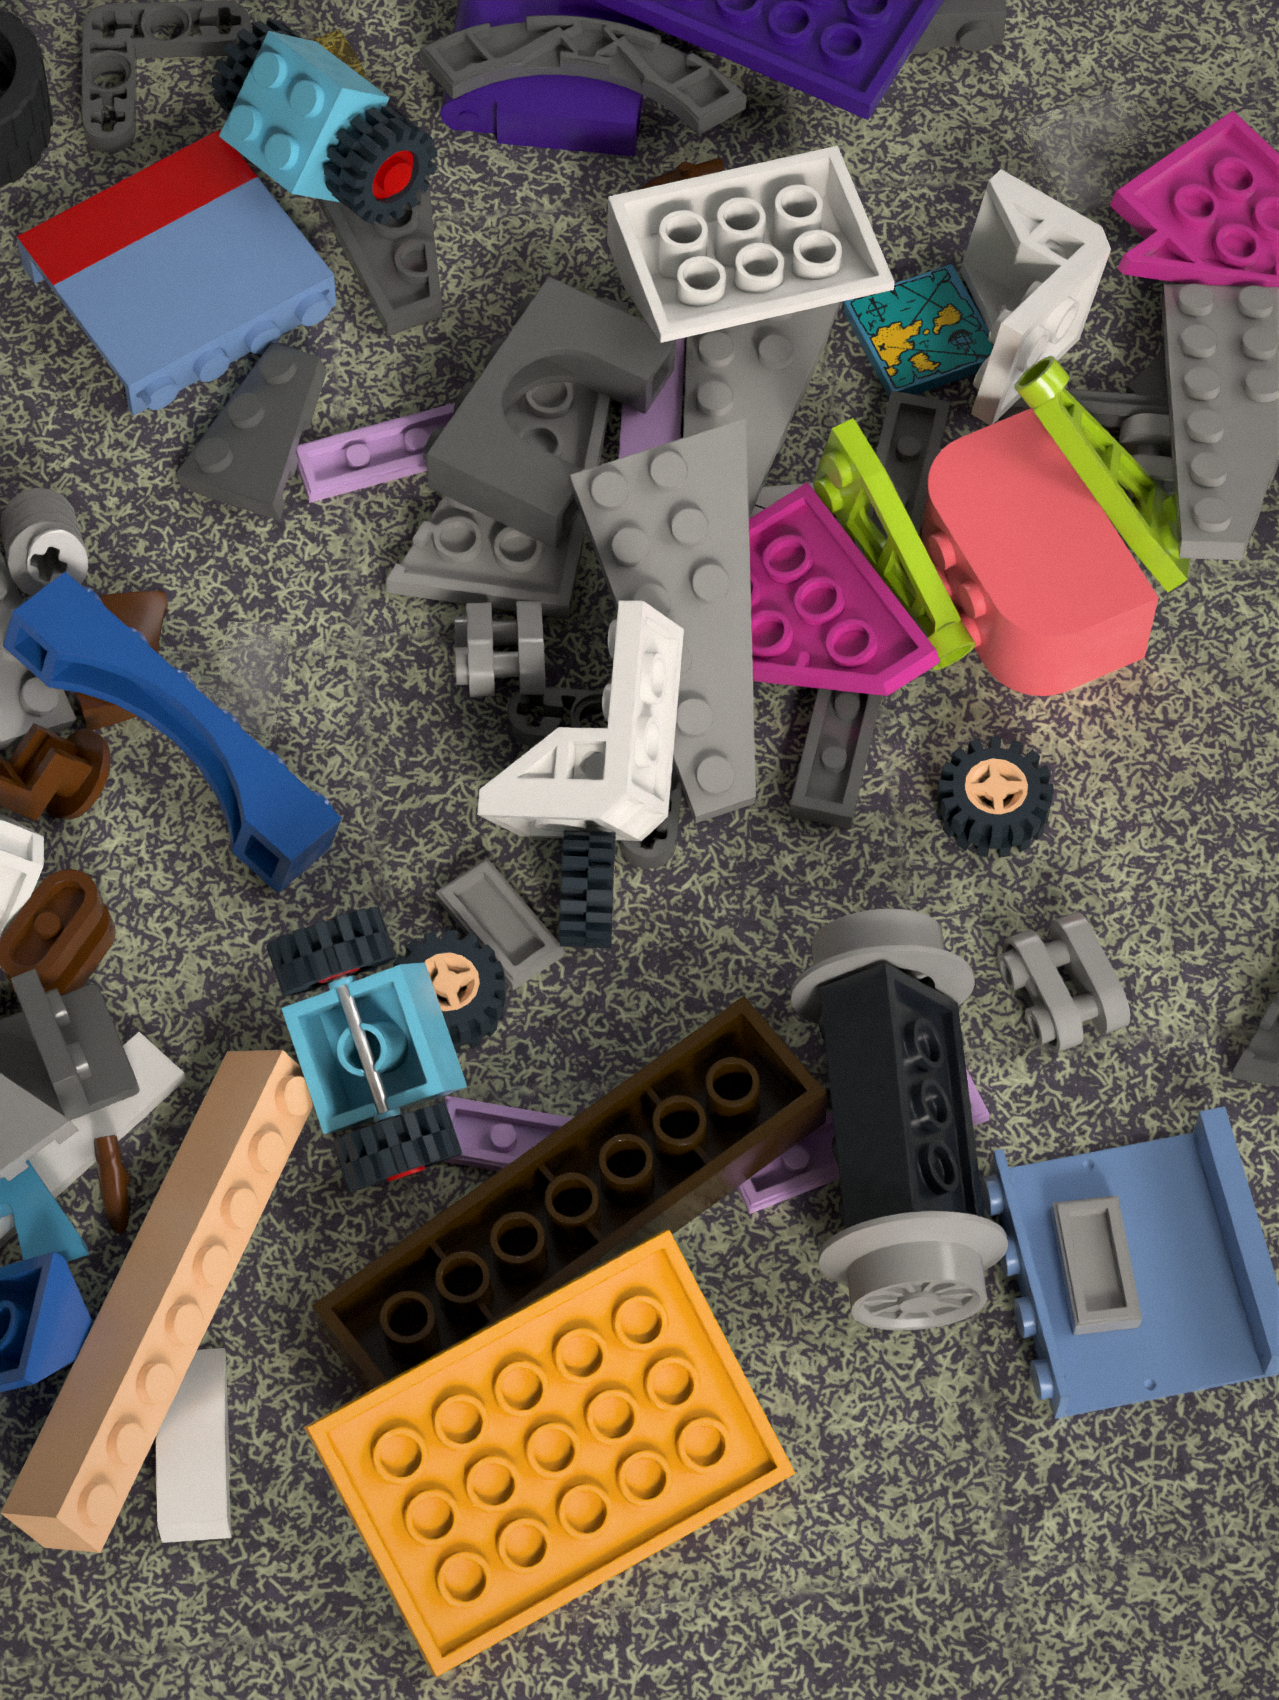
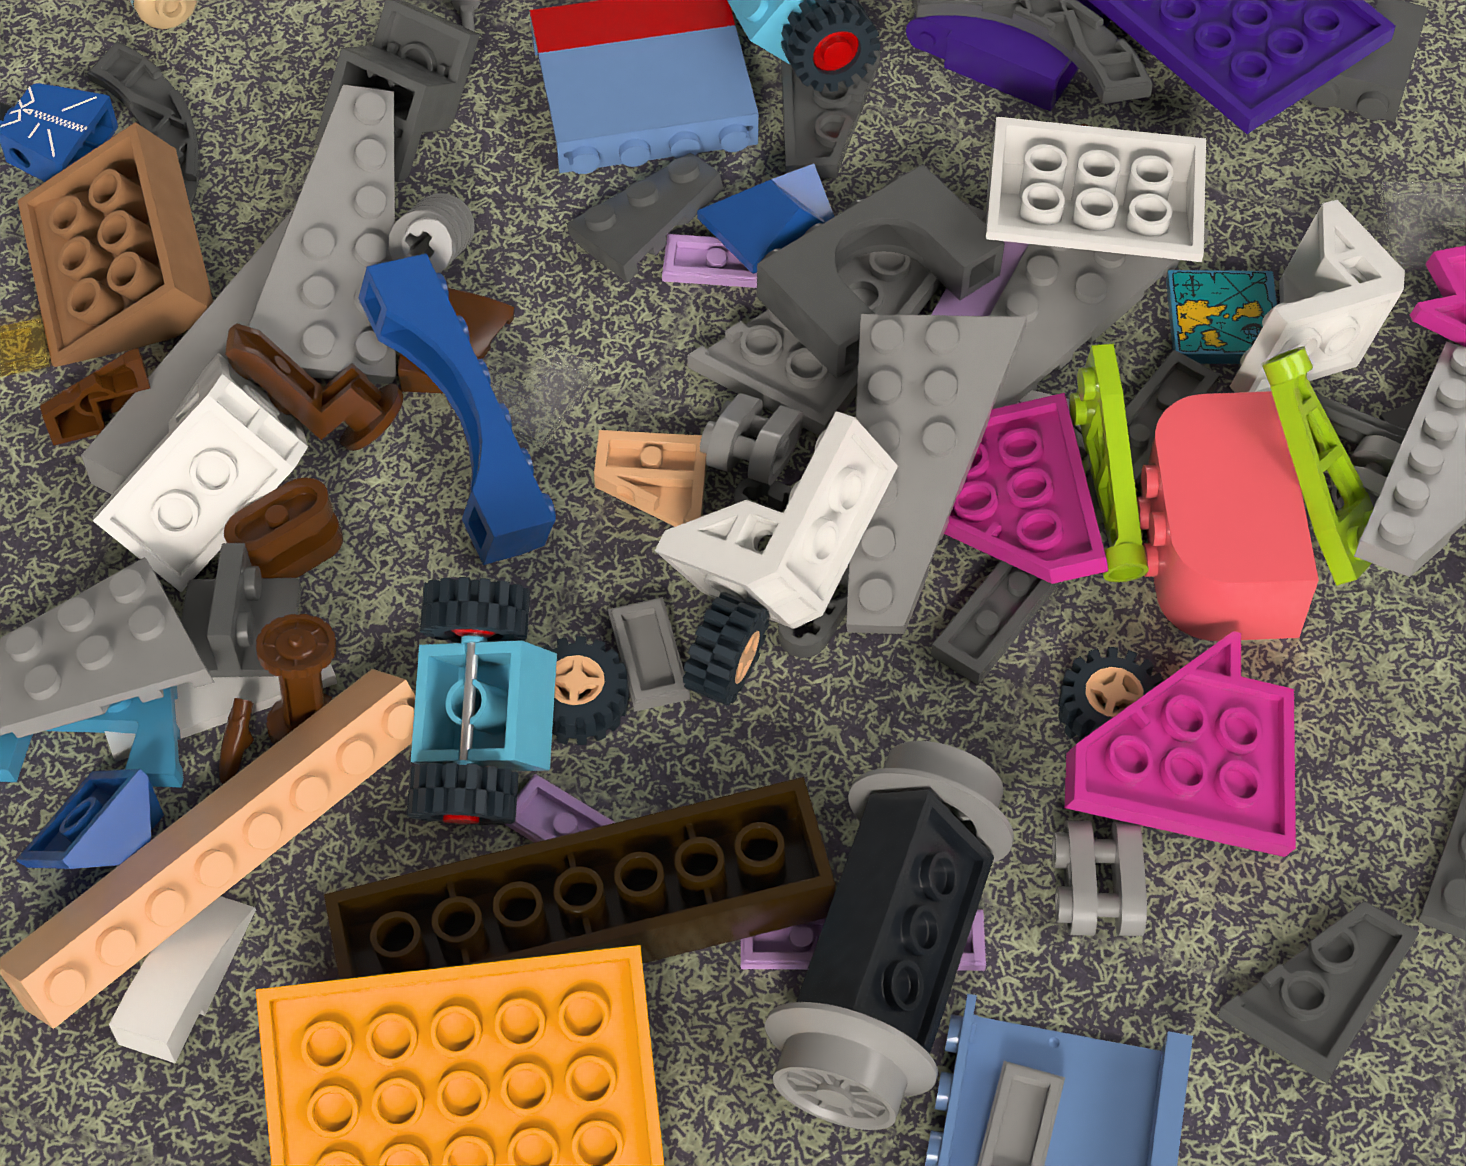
camera: 25 degrees right, 5 degrees down
(161, 1065) = (296, 652): none -> reddish brown hose
(400, 390) = (768, 215): none -> blue slope
(414, 725) = (653, 472): none -> light nougat wing
(1107, 823) = (1197, 757): none -> dark pink wing

